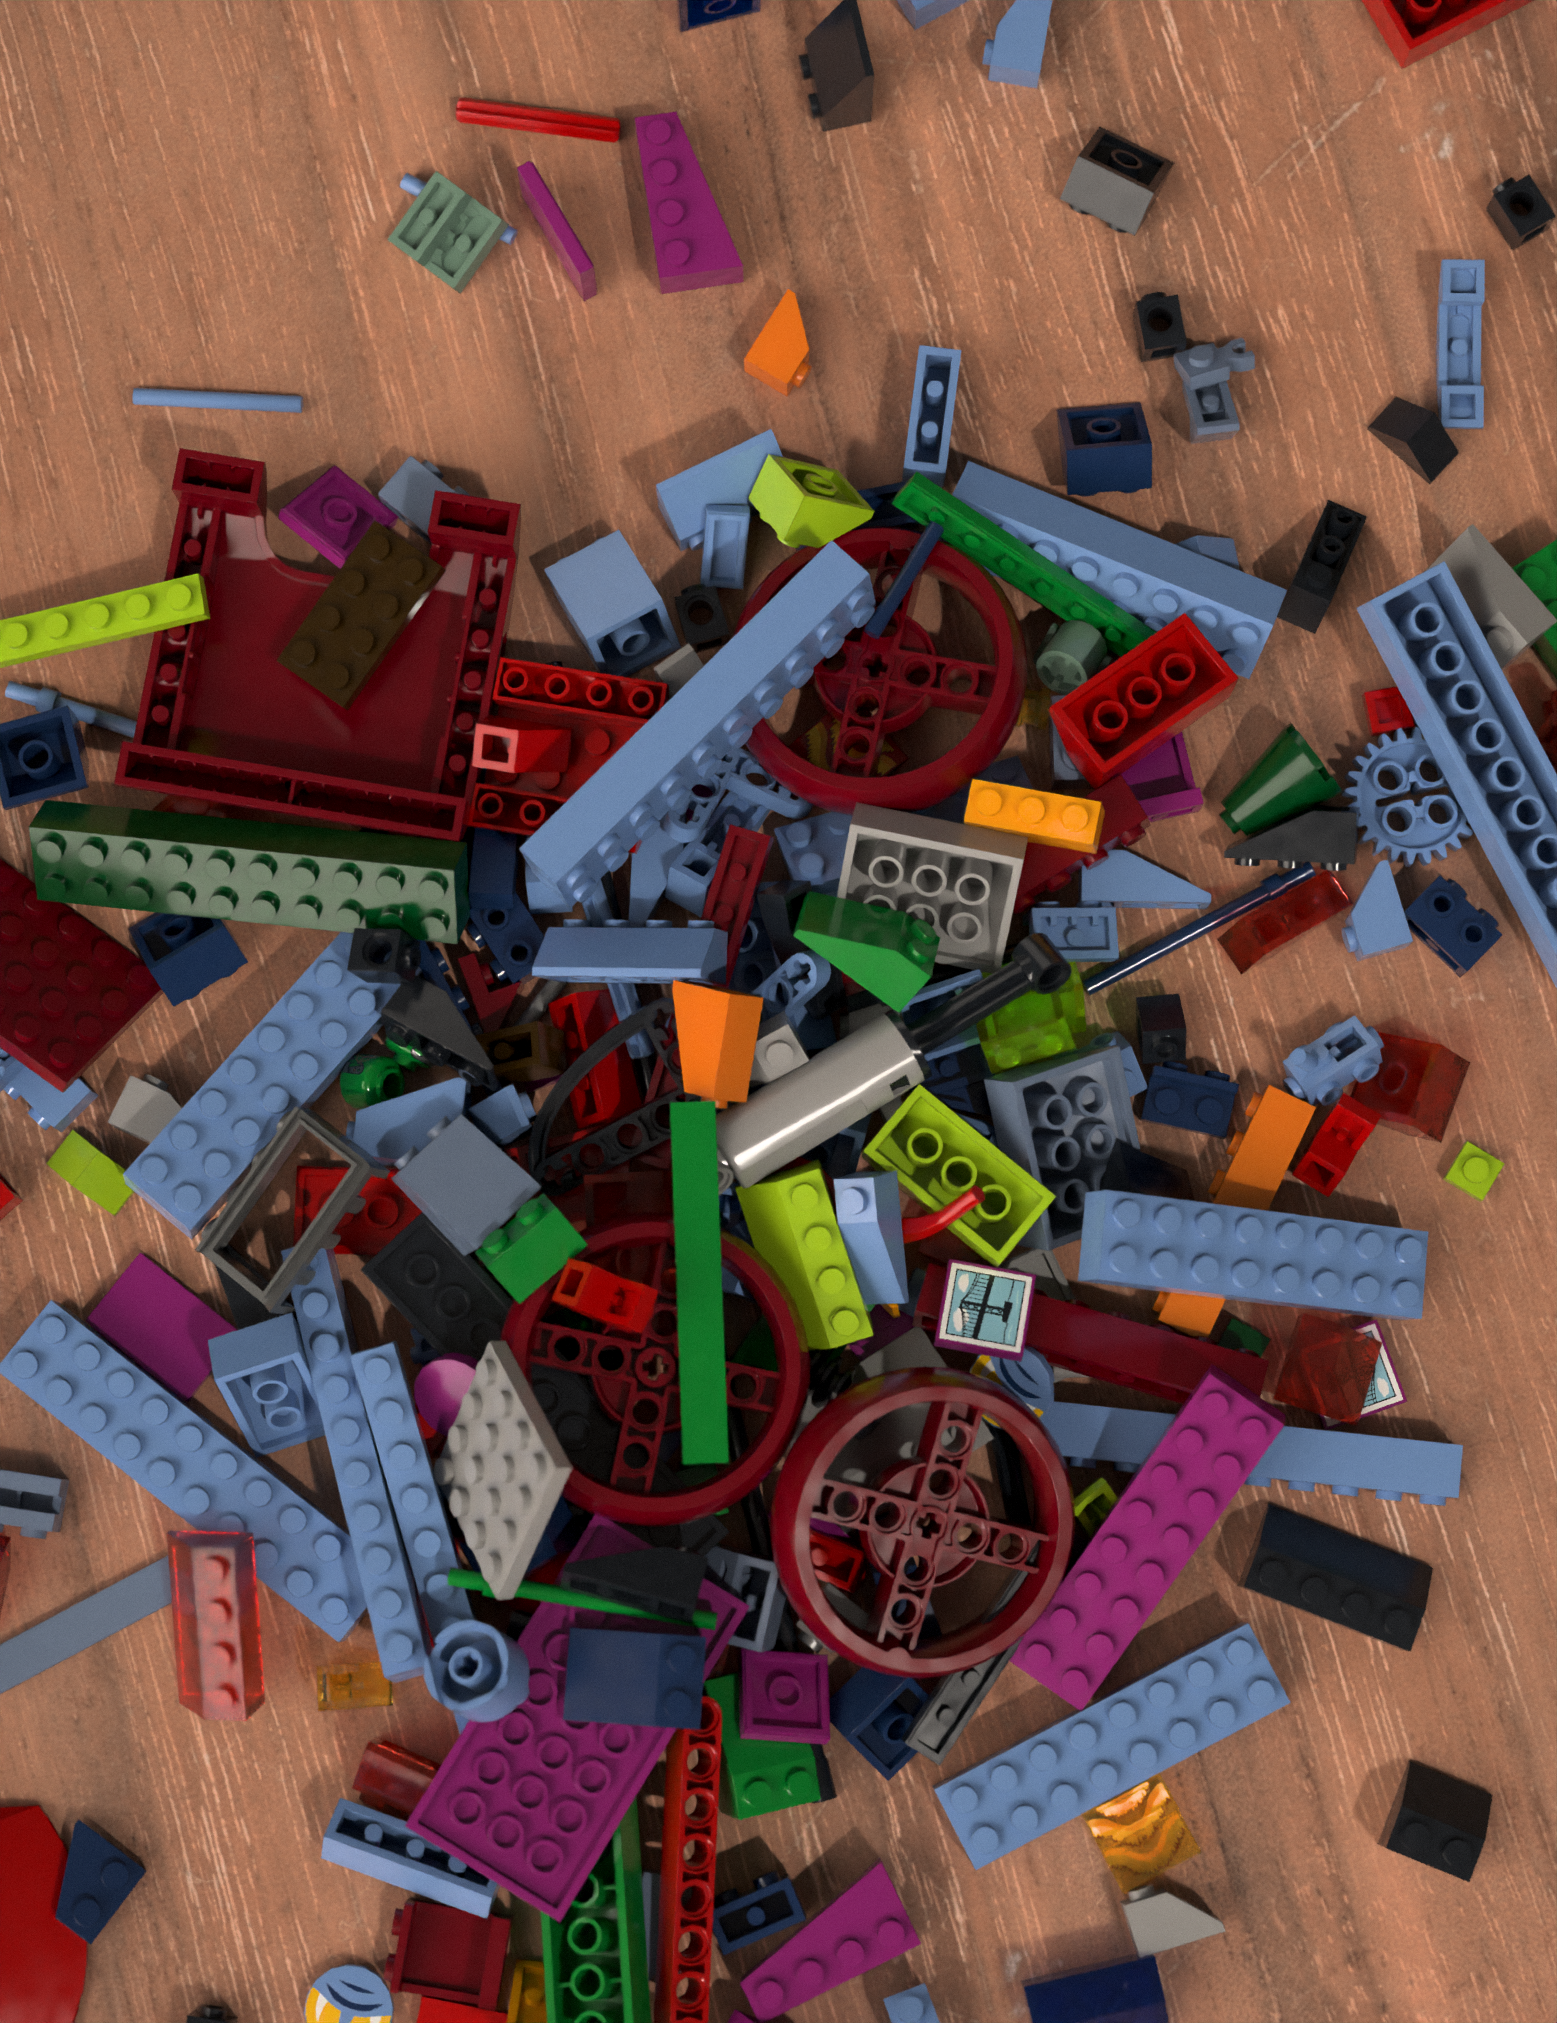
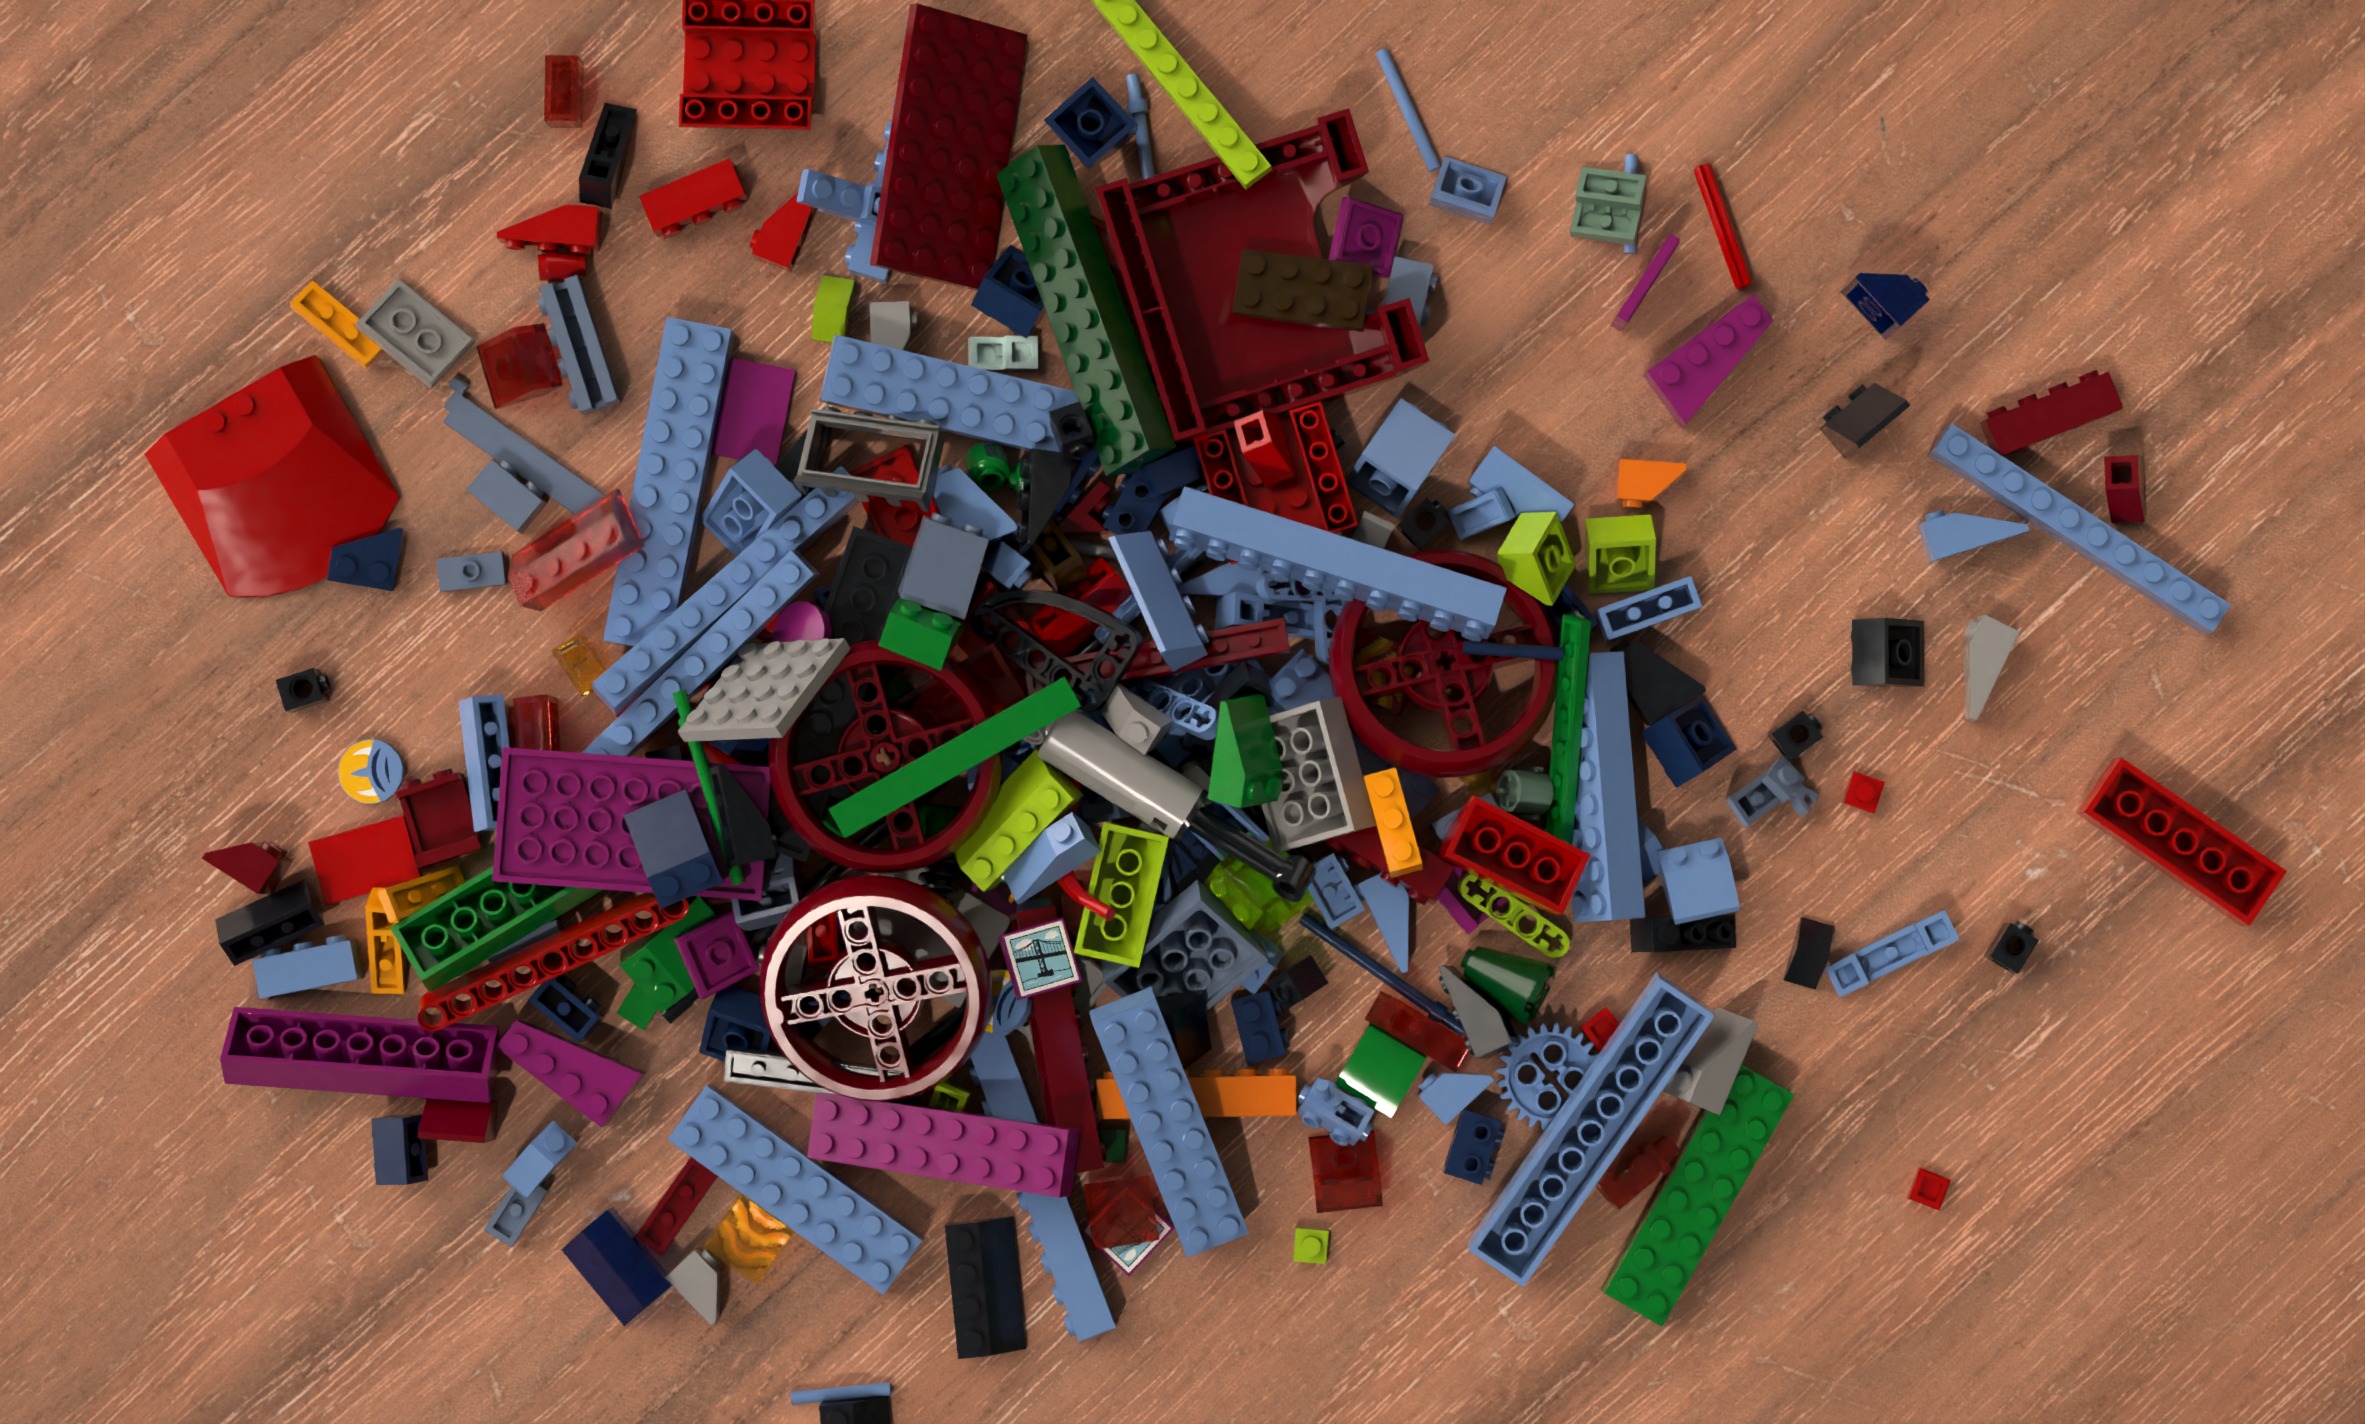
camera: 70 degrees right, 5 degrees up
(105, 1672) = (507, 496): none -> sand blue brick
(173, 1763) = (471, 571): none -> sand blue plate
(250, 998) = (1003, 353): none -> light aqua slope
(347, 379) = (1467, 190): none -> medium blue slope
(477, 1671) = (625, 743): medium blue brick -> none
(605, 1296) = (911, 700): red brick -> none
(716, 1040) = (1126, 685): orange slope -> none
(798, 1827) = (637, 1008): none -> green tile
(851, 416) = (1620, 554): none -> lime slope
(1022, 448) = (1654, 683): none -> black slope
(1059, 1901) = (676, 1206): none -> dark red plate
(1179, 80) = (1984, 657): none -> light grey slope
(1207, 747) = (1513, 915): none -> lime beam
(1261, 288) = (1863, 792): none -> red plate
(1272, 514) = (1698, 881): none -> medium blue slope
(1309, 986) = (1380, 1070): none -> green slope
(1335, 1144) = (1277, 1141): red brick -> none
(1379, 1816) = (841, 1393): none -> medium blue bar

